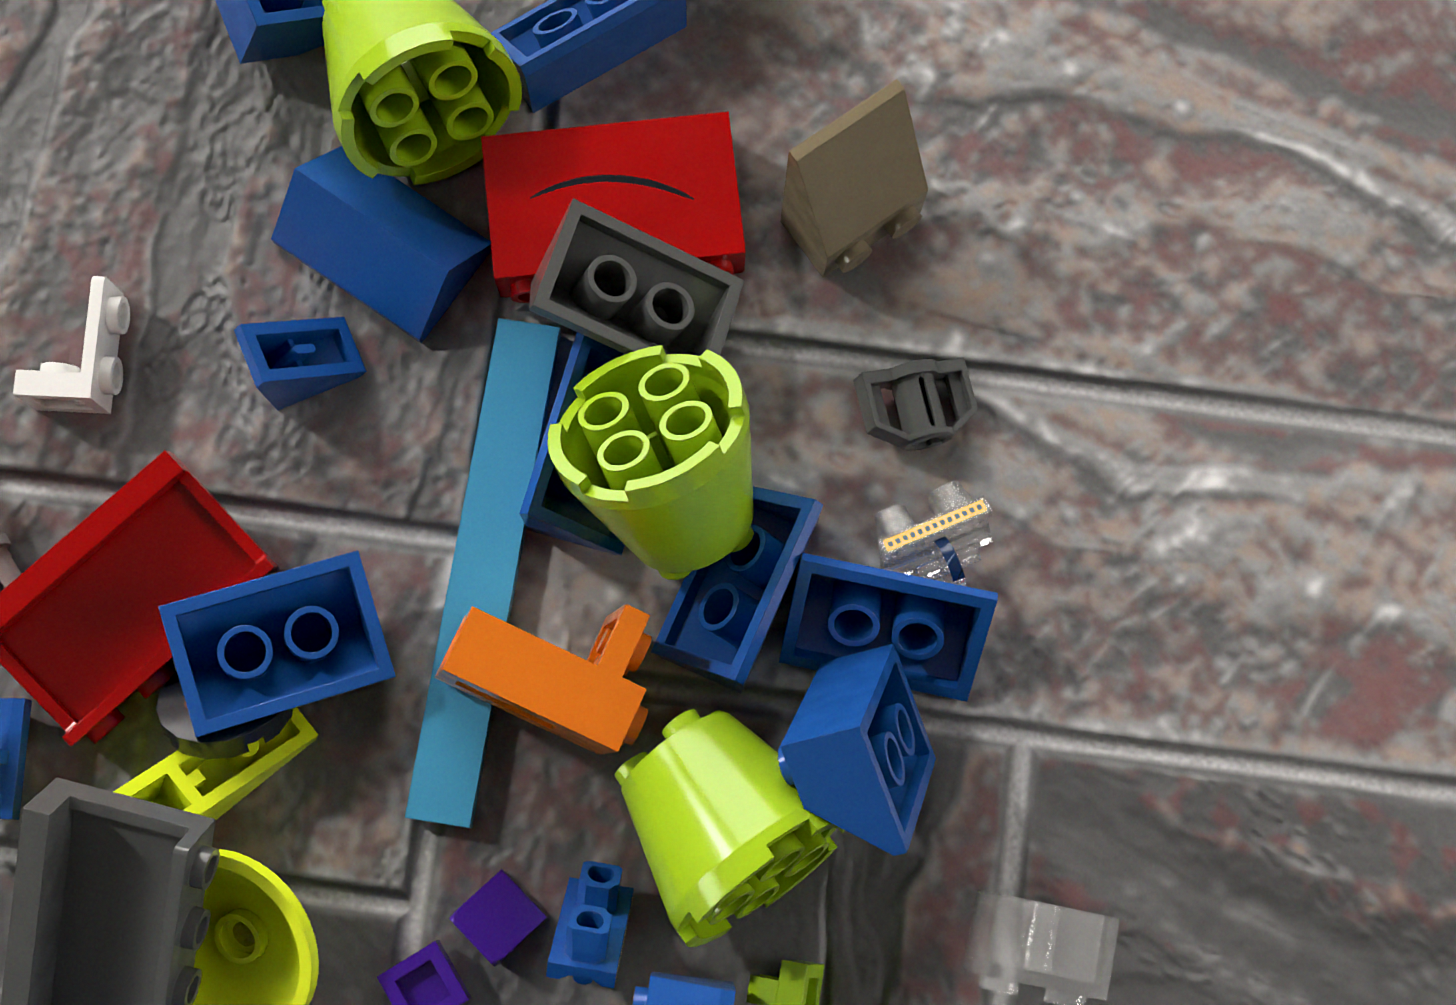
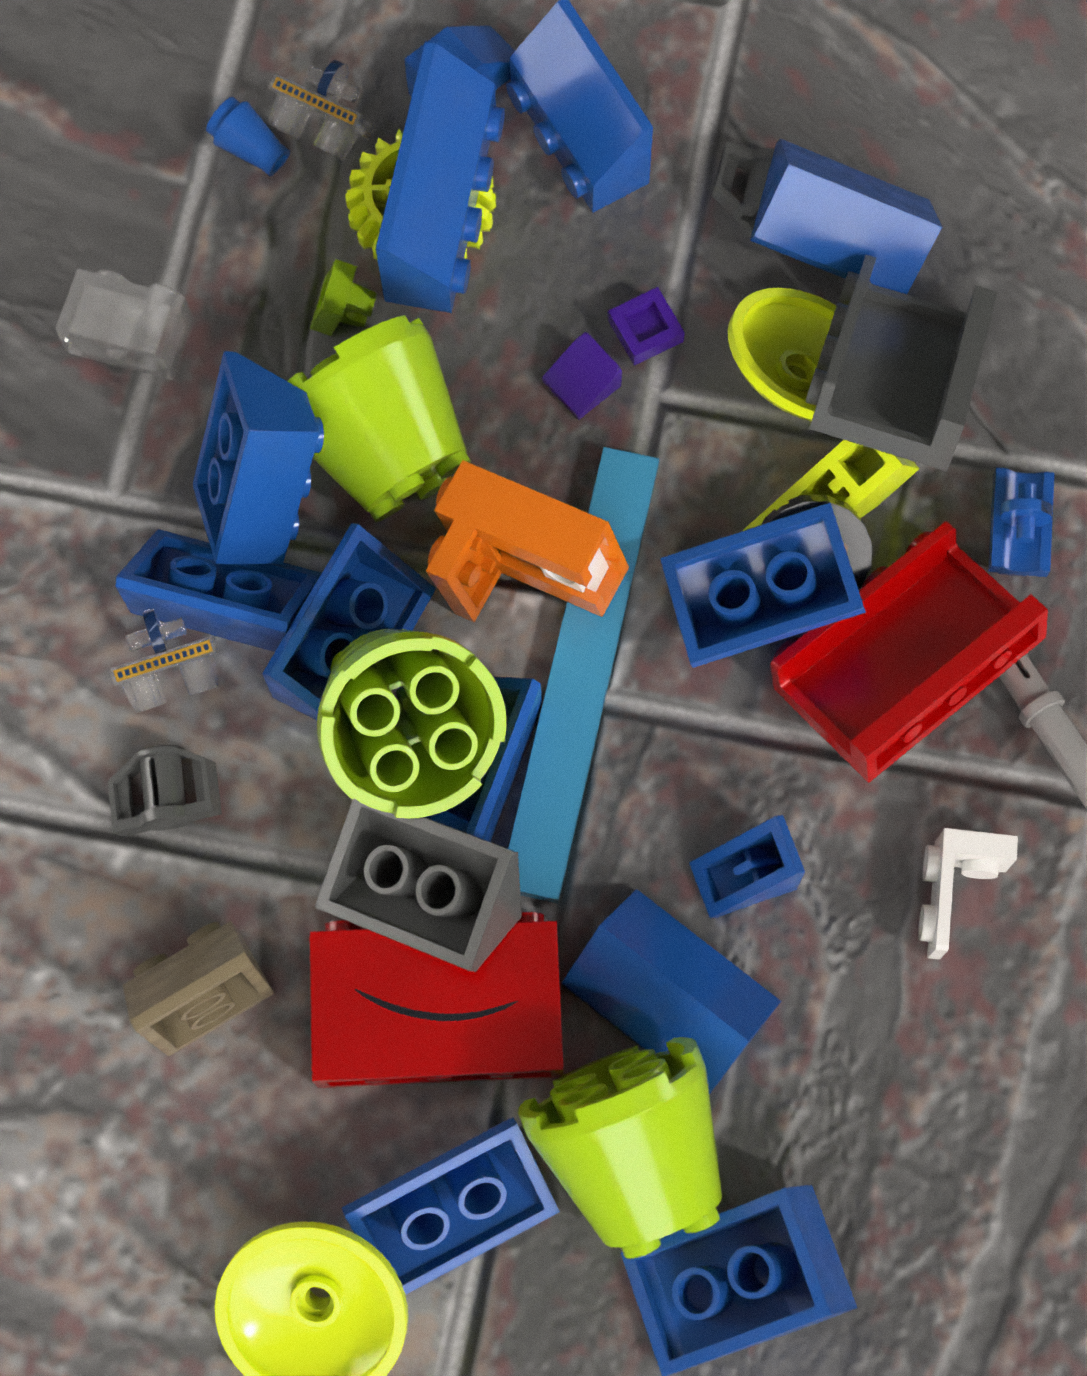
camera: 170 degrees left, 5 degrees down
(591, 926) = (501, 352): blue hips -> none

